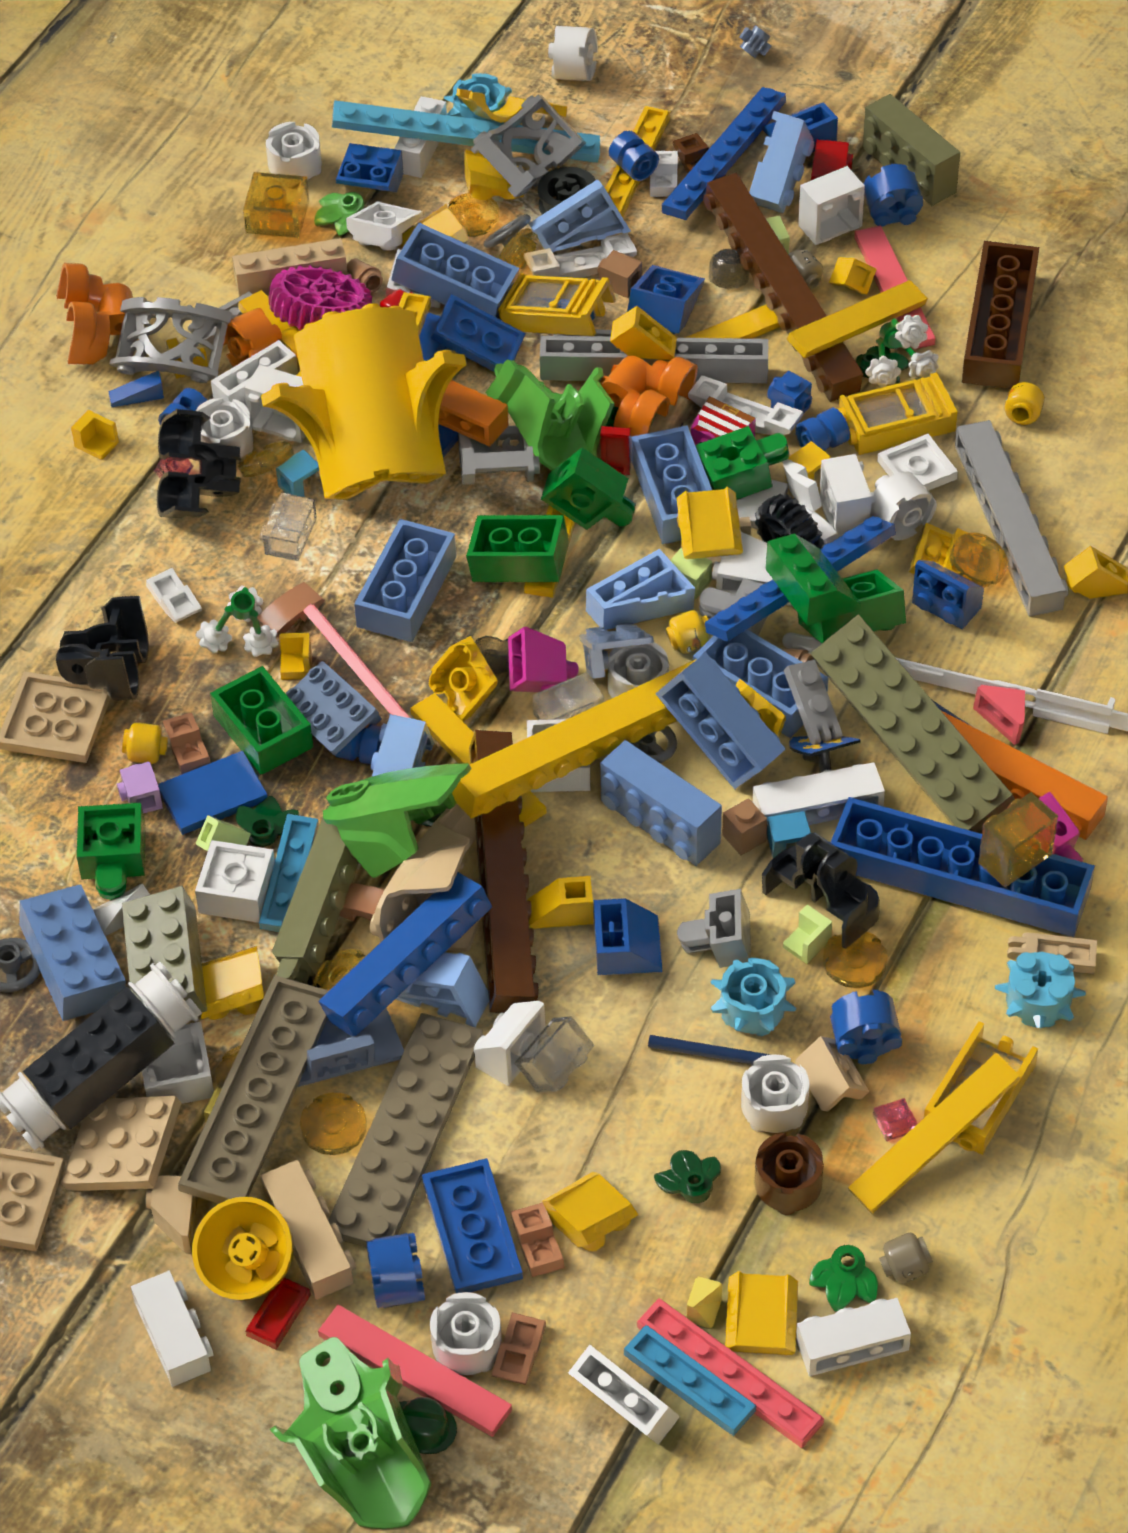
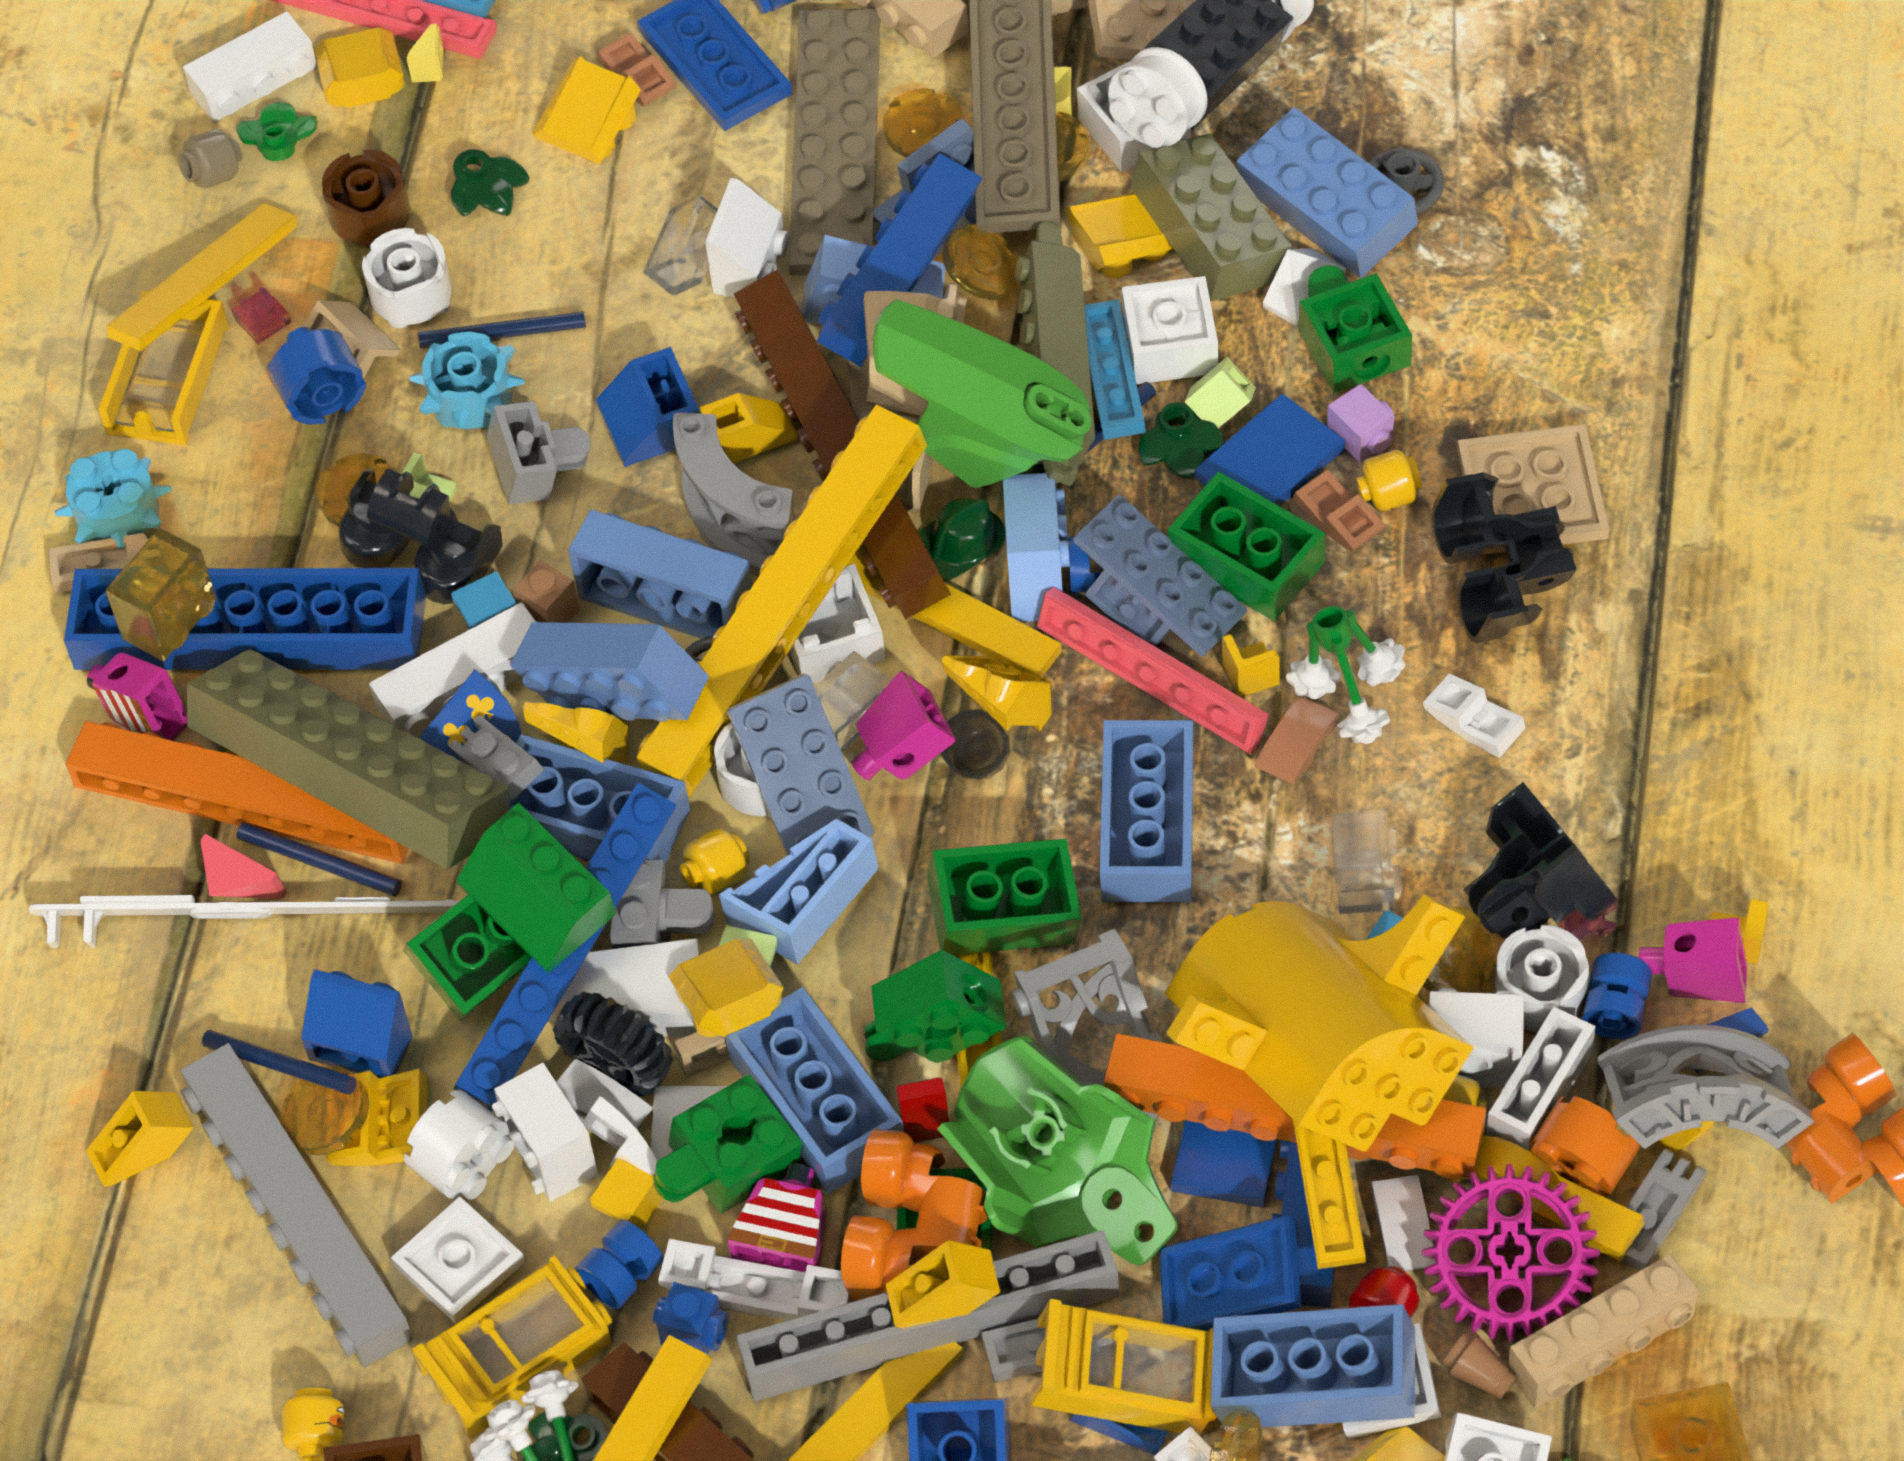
camera: 165 degrees right, 5 degrees up
(129, 411) = (1702, 960): none -> dark pink torso
(595, 826) = (722, 500): none -> light grey fence
(1001, 588) = (281, 1062): none -> dark blue bar

